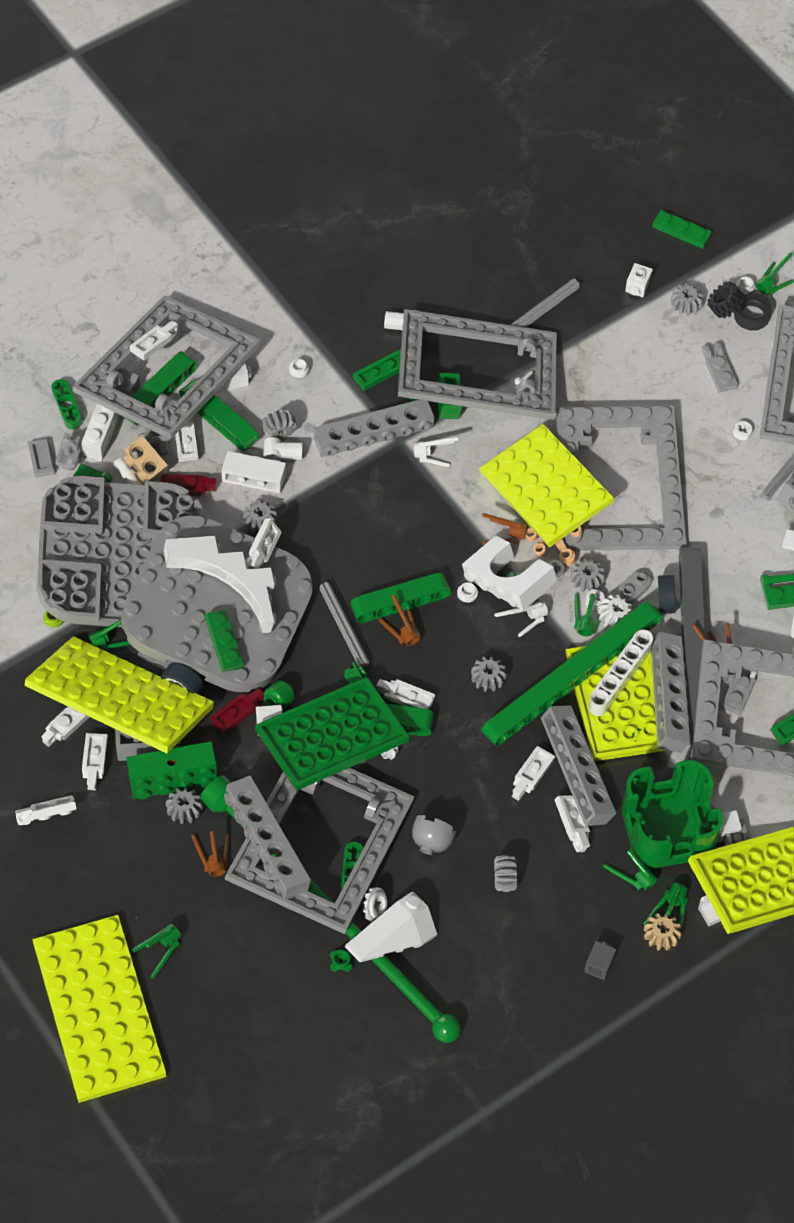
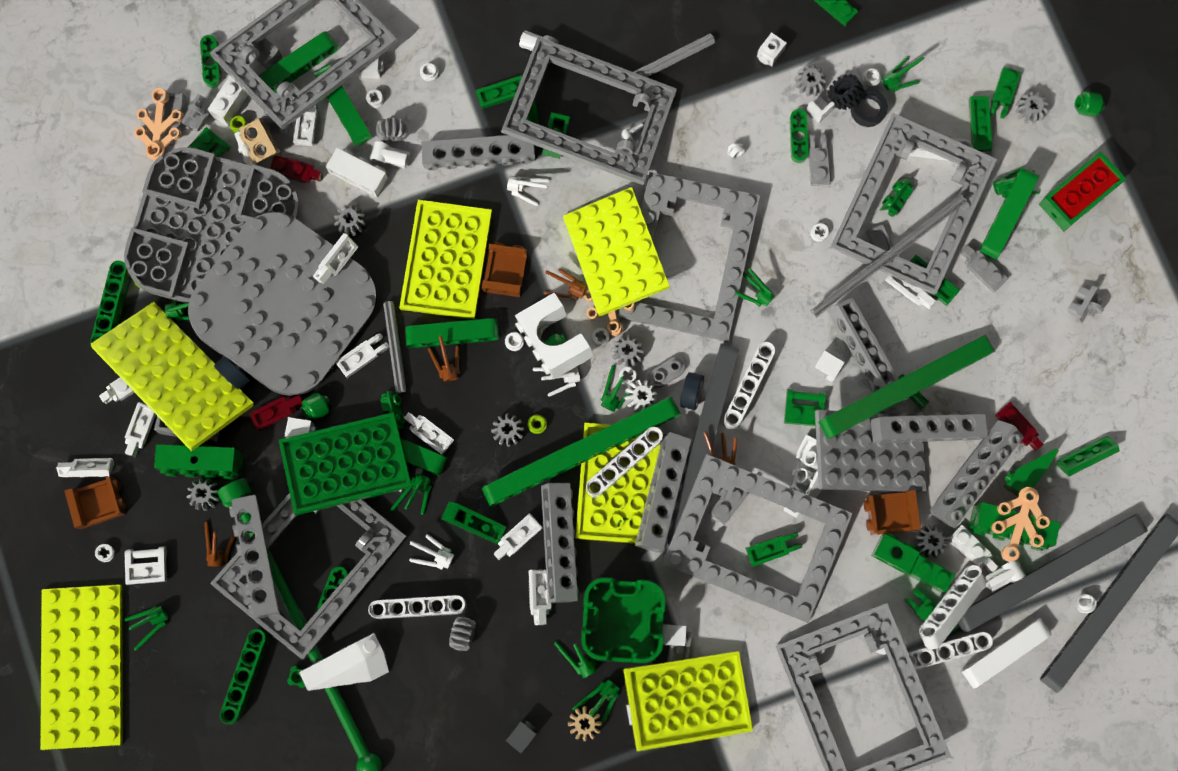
camera: 20 degrees right, 20 degrees up
(26, 642) = (108, 298): none -> green beam
(30, 473) = (158, 127): none -> light nougat plant
(68, 841) = (95, 503): none -> dark orange panel
(87, 893) = (102, 558): none -> white bush
(111, 451) = (235, 121): none -> lime plate
(144, 895) = (145, 572): none -> white plate
(154, 340) = (297, 19): white hinge -> none
(205, 556) = (275, 260): white arch -> none
(223, 640) = (273, 348): green plate -> none
(250, 398) = (370, 94): none -> white bush
(283, 981) = (237, 683): none -> green beam
(311, 639) = (361, 356): none -> white hinge
(372, 532) = (446, 259): none -> neon yellow plate
(372, 908) = (344, 630): white gear -> none
(412, 748) = (419, 484): none -> green plant
(432, 835) = (408, 580): light grey cylinder -> none
(436, 529) = (505, 269): none -> dark orange panel
(443, 869) = (427, 602): none -> white beam
(460, 808) = (442, 558): none -> white plant
(479, 767) = (473, 522): none -> green slope
(516, 658) = (535, 418): none -> lime plate
(634, 375) = (735, 150): none -> white plate
(692, 343) = (803, 123): none -> green beam
(704, 323) = (819, 109): none -> white panel
(707, 496) = (764, 295): none -> green plant
(719, 587) = (755, 379): none -> white beam

